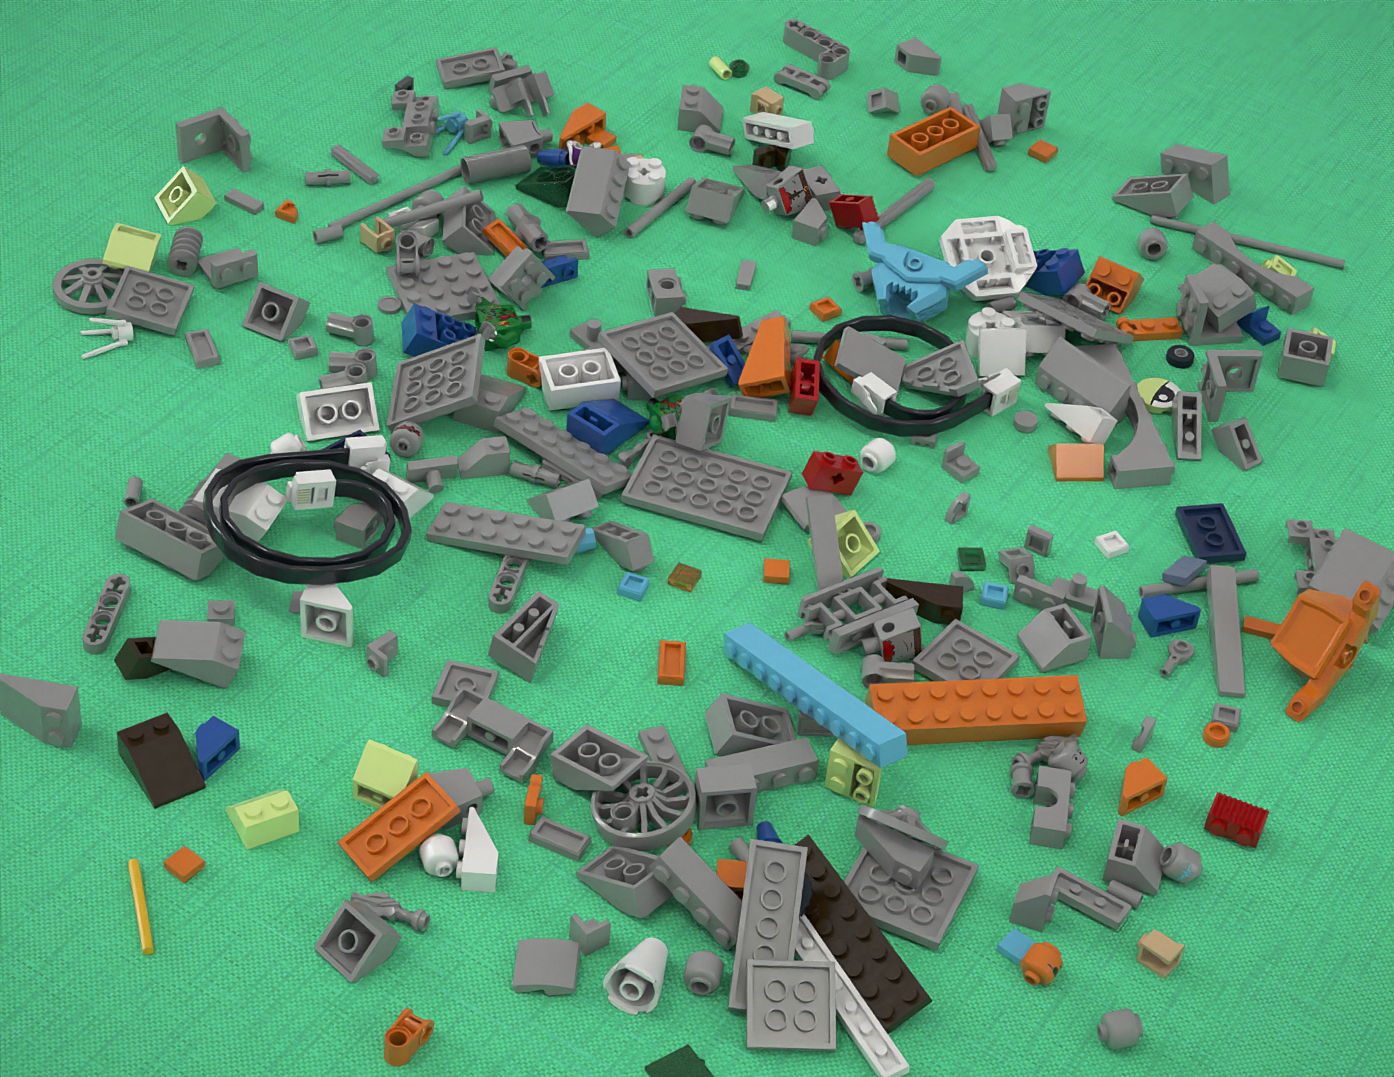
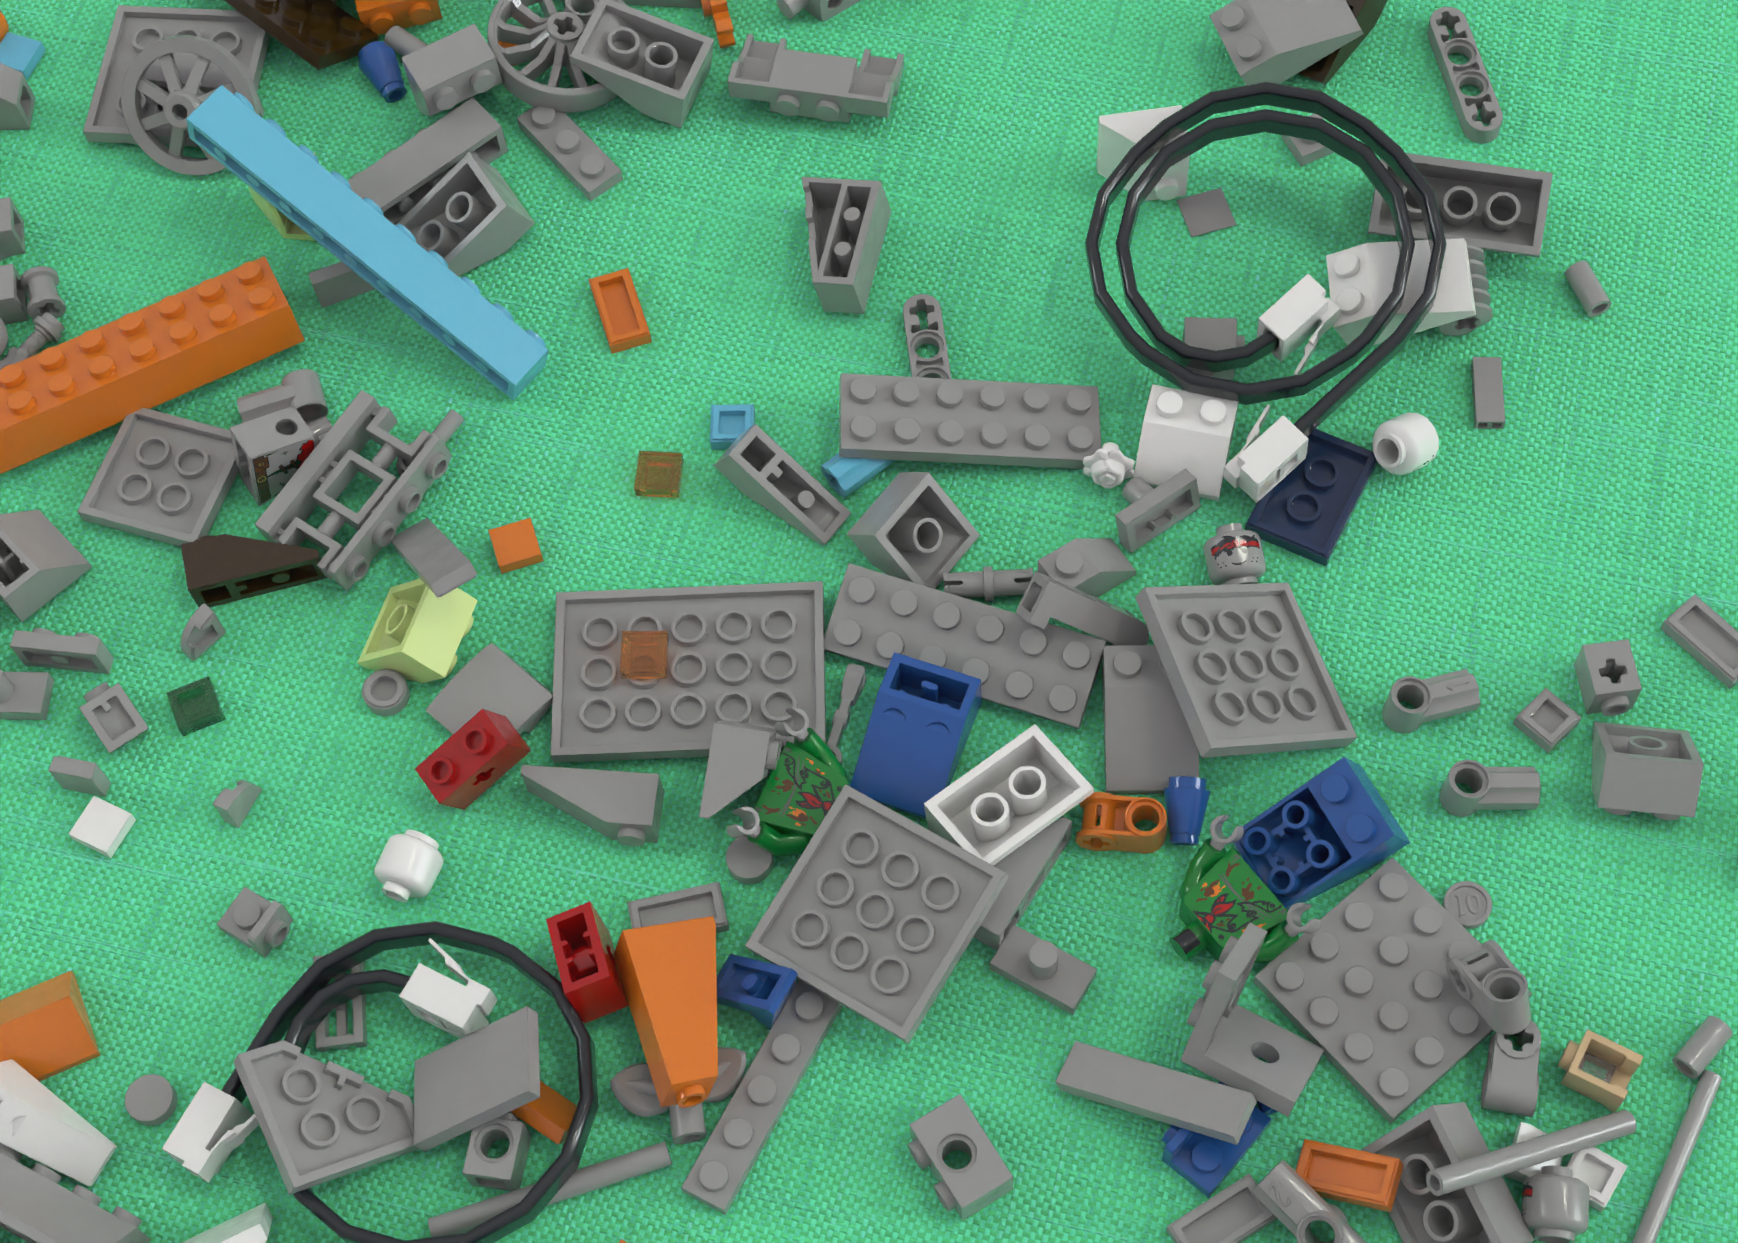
camera: 170 degrees right, 20 degrees up
(262, 339) = (1607, 677): none -> light grey brick
(337, 411) = (1388, 576): white slope -> none
(354, 374) = (1419, 646): light grey piece -> none
(382, 651) = (1041, 145): light grey bracket -> none
(444, 493) = (1108, 466): none -> white plant
(461, 674) = (900, 153): light grey tile -> none
(494, 364) = (1186, 807): none -> blue cone
(502, 425) = (1057, 600): none -> light grey leg
(571, 276) = (1156, 1092): none -> light grey tile
(710, 325) = (852, 1060): dark brown slope -> none
(728, 488) = (644, 655): none -> clear orange tile
(772, 449) = (611, 802): none -> light grey slope
(994, 595) = (143, 641): medium azure tile -> none
(1028, 519) = (102, 826): none -> white tile

